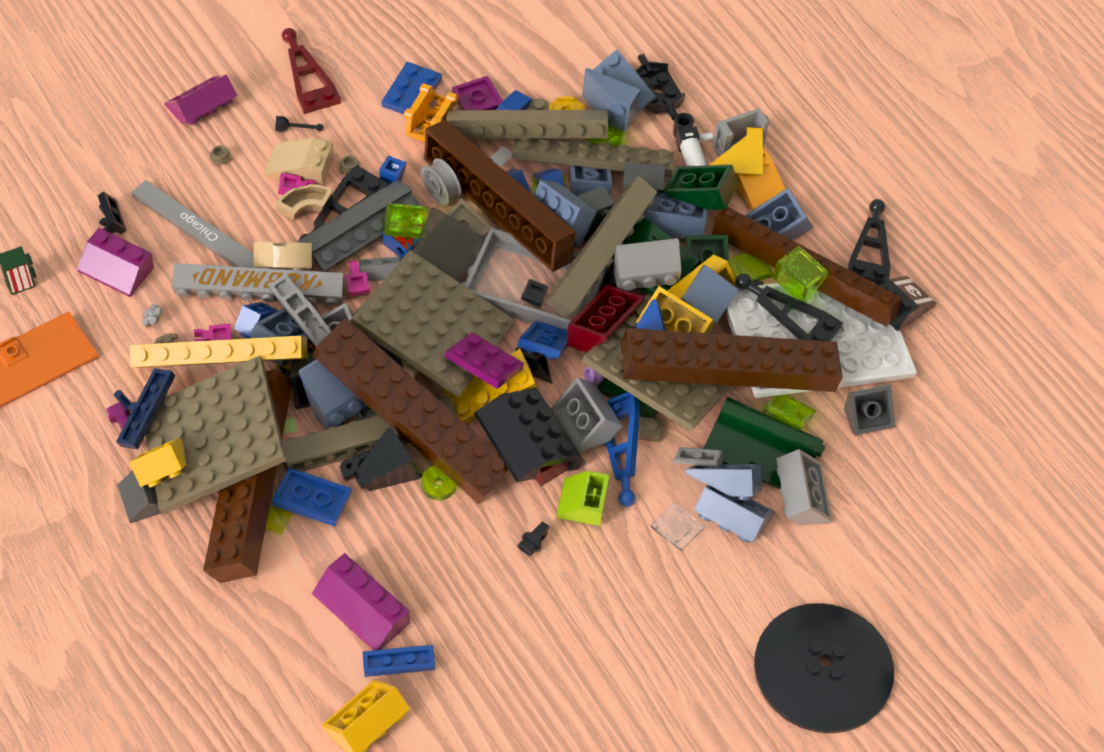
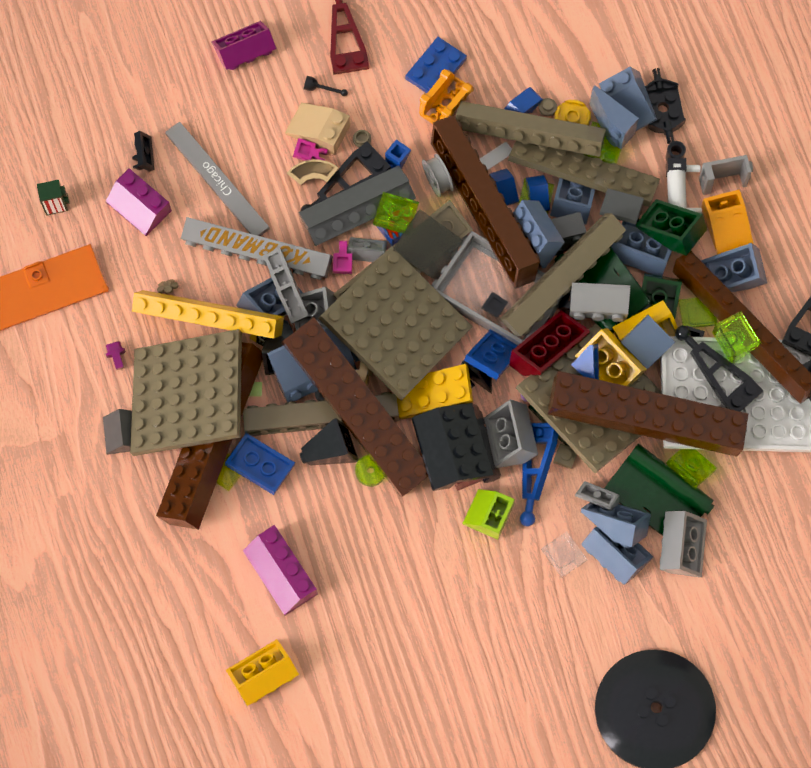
camera: 20 degrees right, 15 degrees up
(144, 409) = (136, 354): dark blue plate -> none
(151, 316) = (160, 260): light grey plant -> none
(159, 462) = (137, 412): yellow slope -> none
(215, 332) = (211, 291): dark pink plate -> none
(220, 155) = (249, 107): dark tan plate -> none
(250, 315) = (246, 279): slope -> none
(283, 255) = (281, 226): tan brick -> none
(355, 462) = (304, 438): black piece -> none
(398, 660) = (300, 628): blue plate -> none
(477, 95) = (493, 86): magenta plate -> none
(484, 360) = (430, 372): magenta plate -> none
(532, 541) = (435, 543): black piece -> none
(746, 154) = (721, 201): yellow sticker -> none
(870, 409) = (765, 479): dark grey slope -> none

